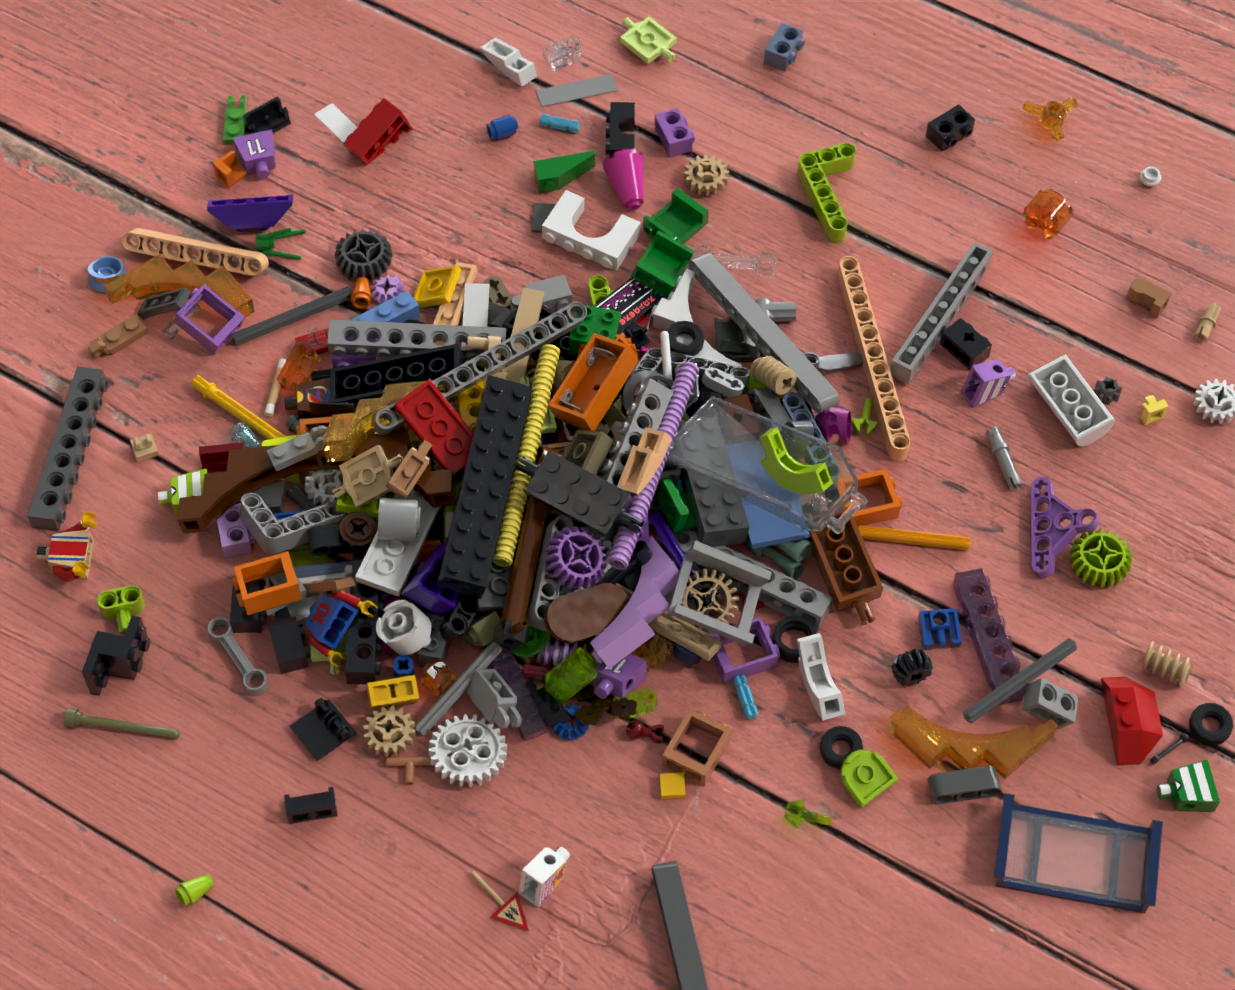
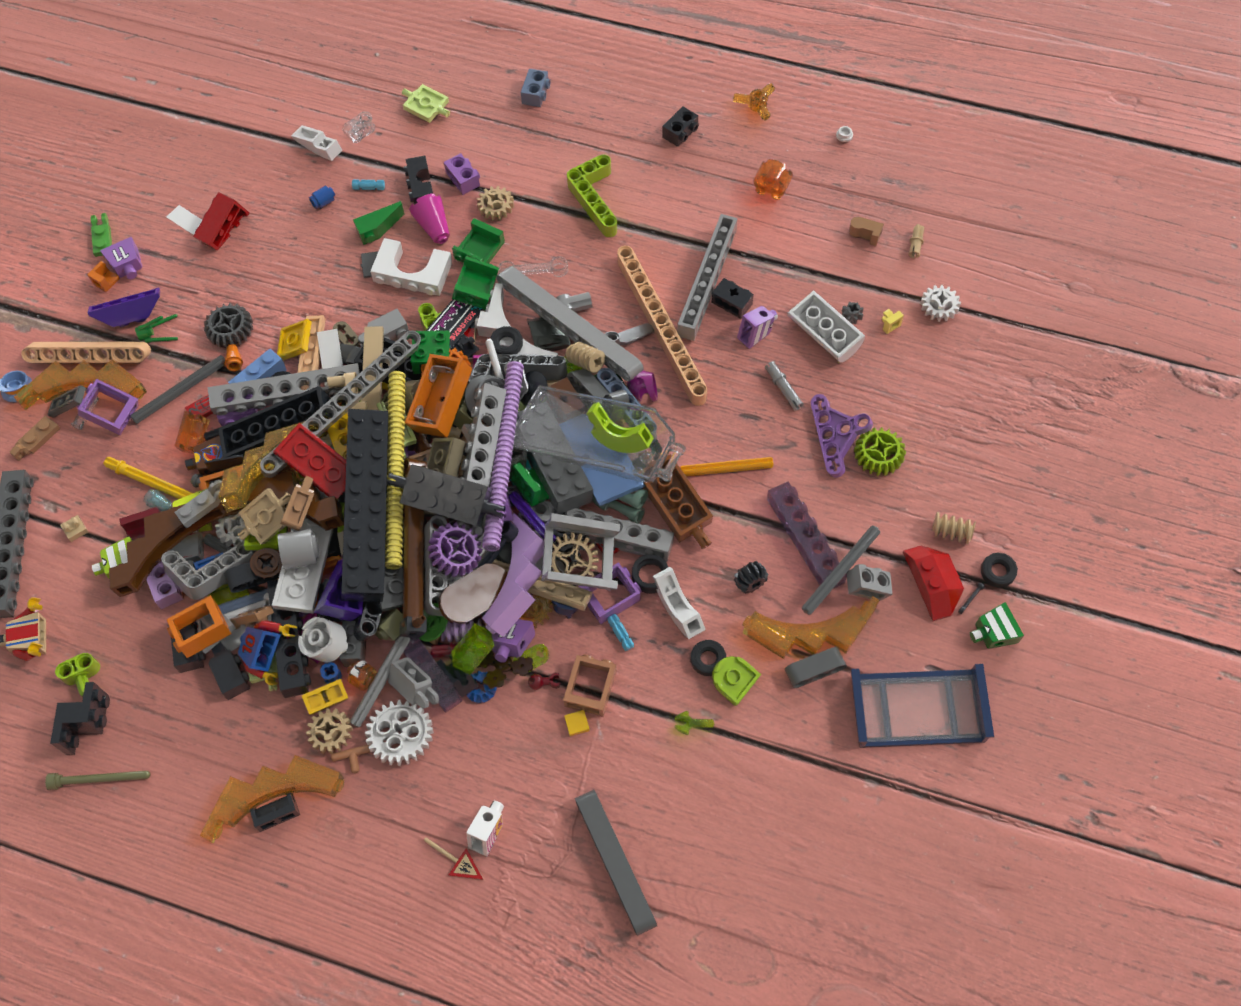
camera: 10 degrees left, 5 degrees up
(193, 889) = (187, 912): lime cone -> none
(237, 656) = (187, 693): light grey piece -> none
(267, 117) = (126, 226): black hinge -> none
(275, 389) = (176, 458): bar -> none
(275, 779) = (240, 796): none -> clear yellow arch
(323, 729) = (272, 741): black hinge -> none
(377, 288) = (245, 351): lavender gear -> none
(576, 90) = (376, 155): light grey sticker -> none
(644, 460) = (494, 454): light nougat slope -> none
(722, 382) = (545, 372): light grey beam -> none
(865, 419) = (666, 376): lime bar -> none
(881, 512) = (697, 451): orange window -> none
(928, 627) = (756, 539): blue brick -> none

